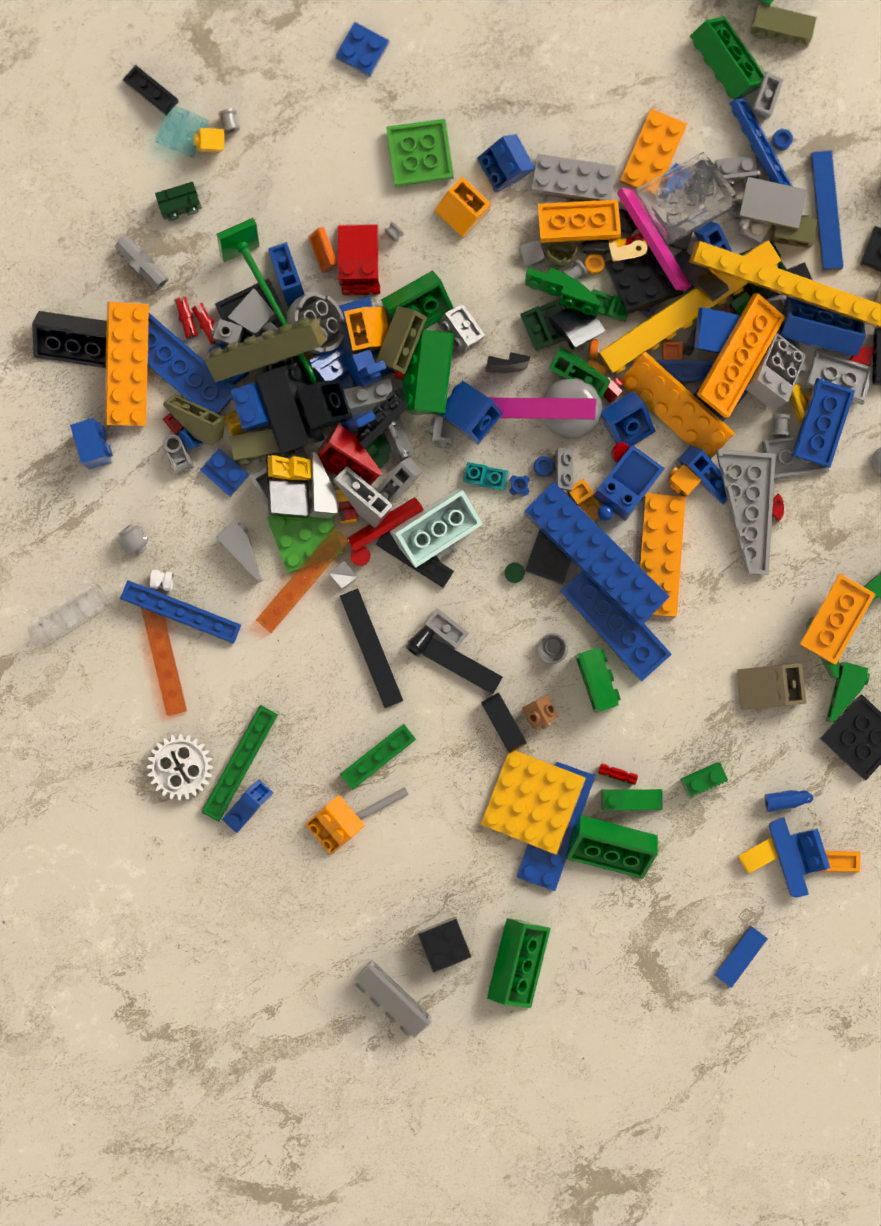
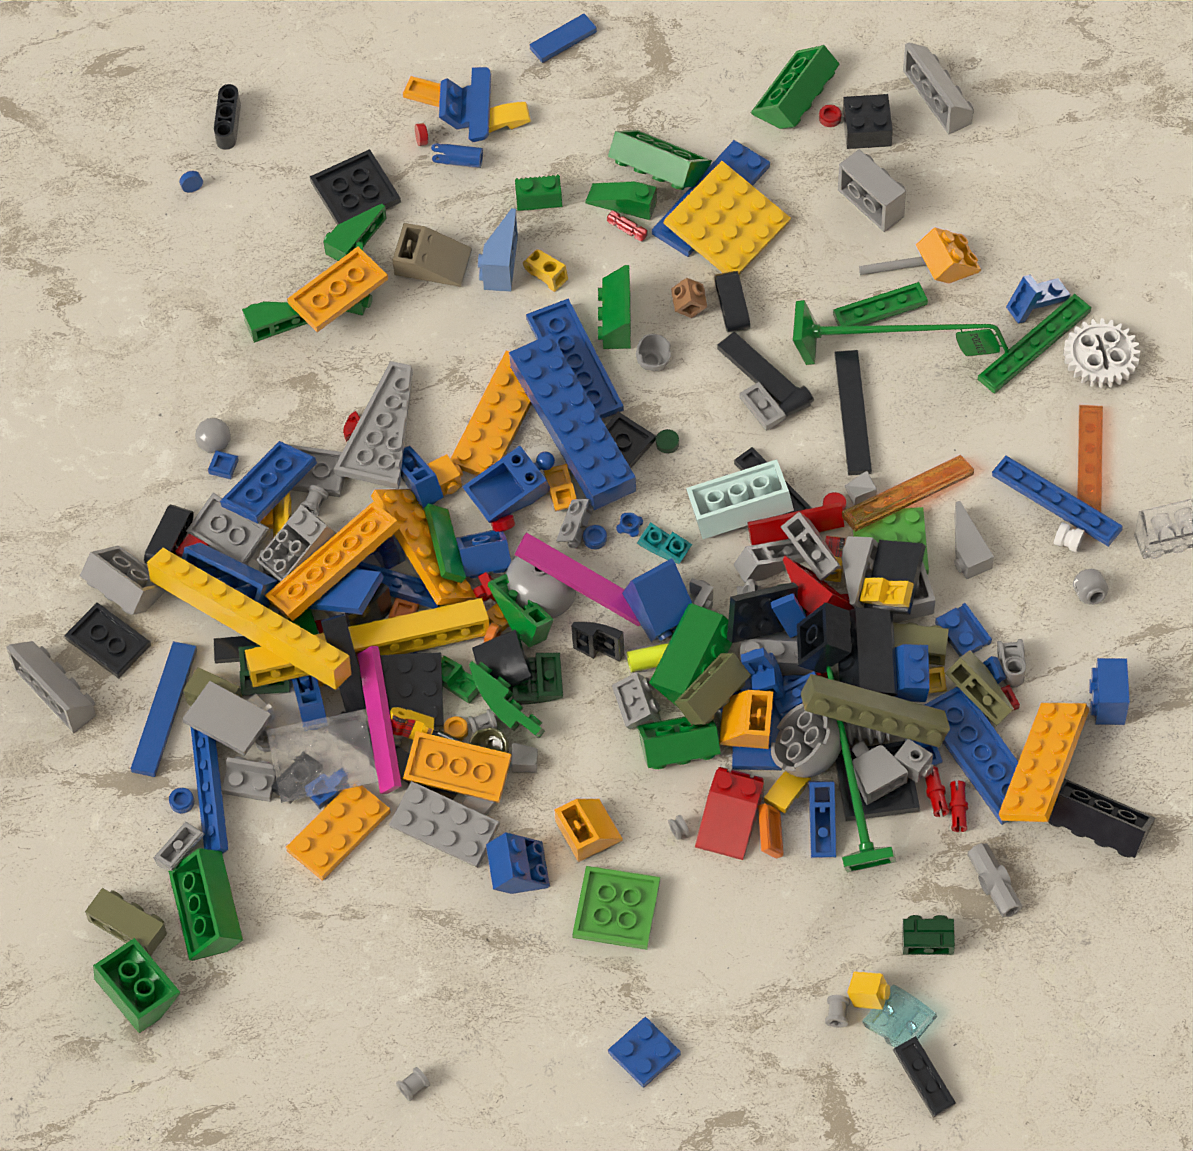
camera: 155 degrees left, 25 degrees down
(323, 281) = (785, 791): none -> yellow slope
(417, 868) = (872, 190): none -> light grey brick
(429, 704) = (970, 342): none -> green piece
(465, 368) = (645, 658): none -> neon yellow piece
(480, 945) = (830, 115): none -> red tile
(660, 413) = (445, 543): none -> green tile
(671, 706) = (546, 269): none -> yellow leg
(712, 697) = (499, 255): none -> medium blue slope
(827, 811) = (421, 134): none -> red tile
(868, 438) = (223, 465): none -> blue tile

